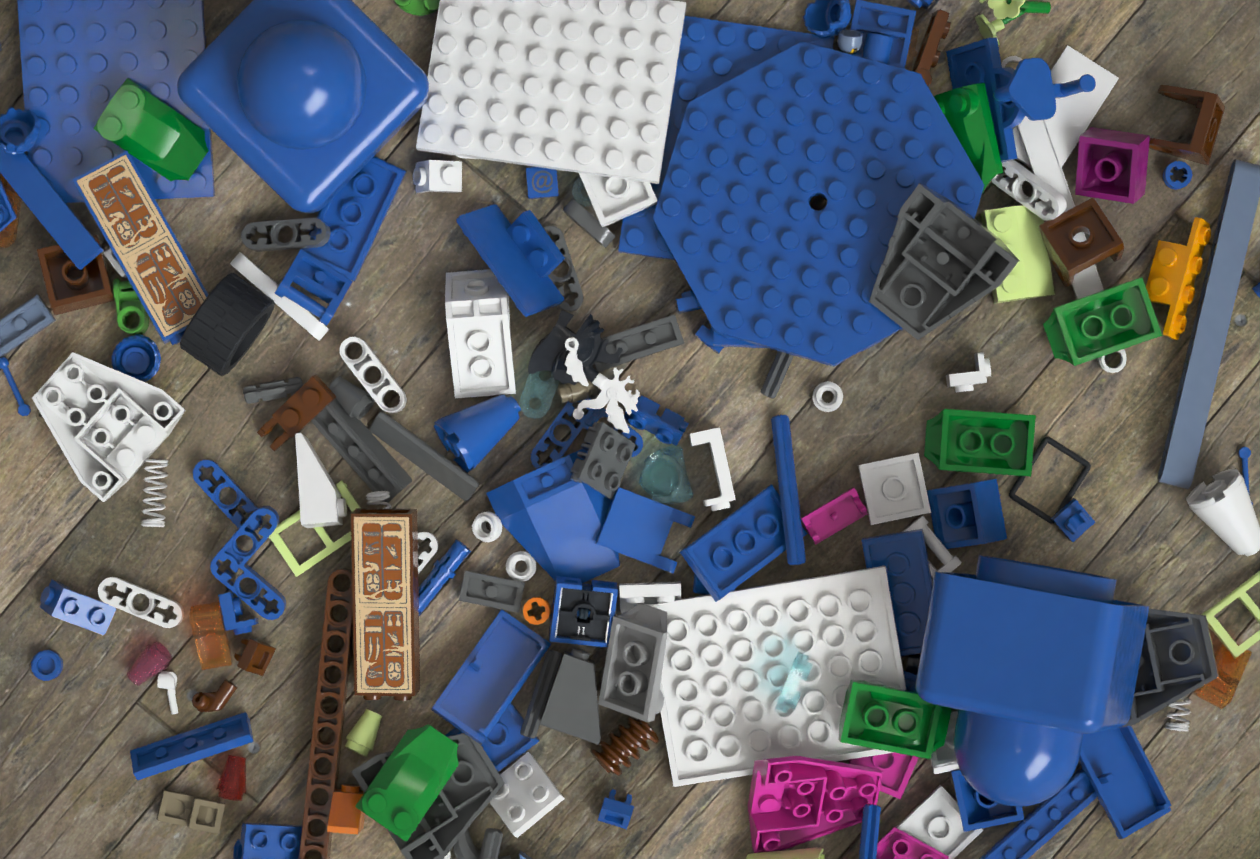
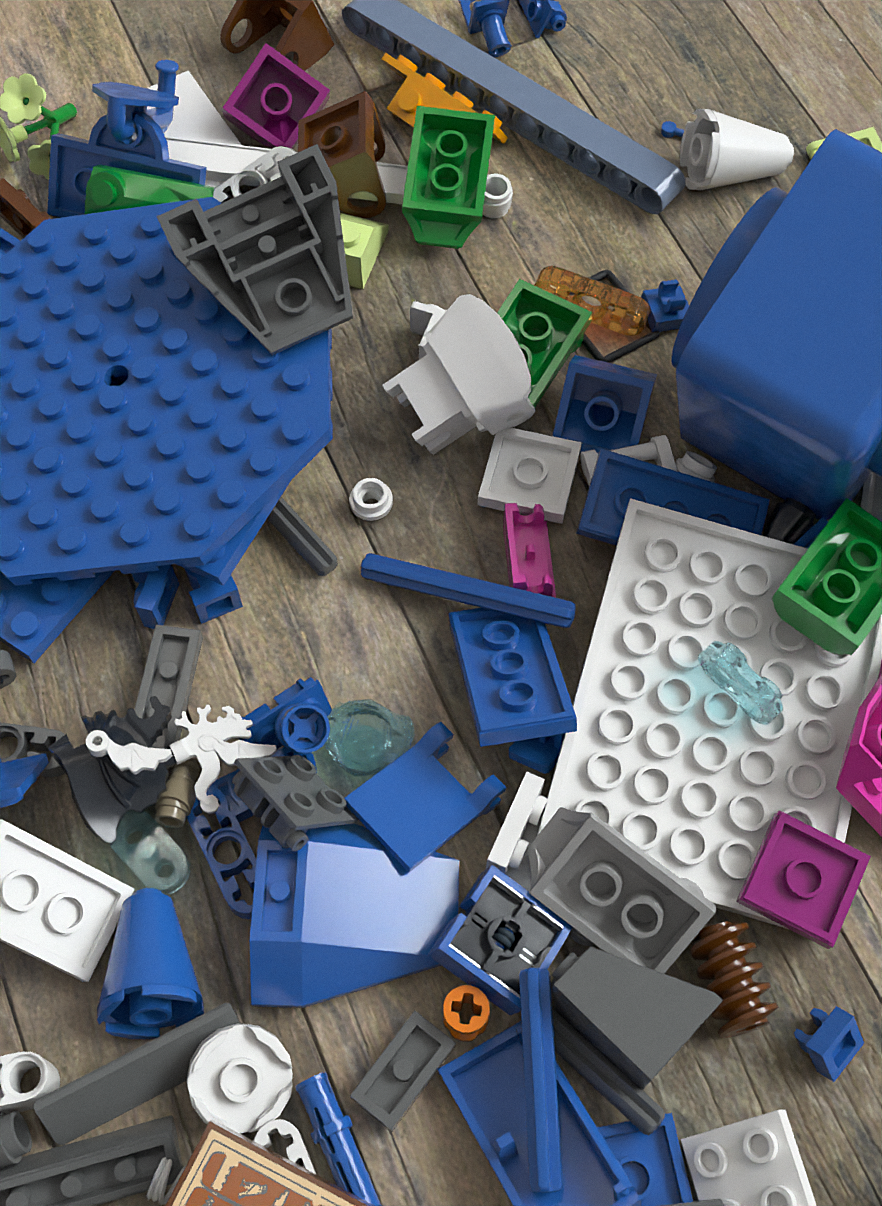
camera: 70 degrees left, 25 degrees down
(446, 508) = (240, 1077): none -> white tile
(479, 526) = (296, 1042): white plate -> none
(518, 666) = (540, 1081): none -> blue axle
(521, 576) = (387, 991): white plate -> none
(643, 447) = (309, 731): none -> blue wheel
(697, 762) = (803, 879): none -> magenta tile
(715, 441) = (385, 652): white panel -> none
(928, 422) = (467, 378): none -> white piece
(1049, 468) = (622, 301): none -> clear orange beam
(1177, 165) = (327, 60): blue bush -> none

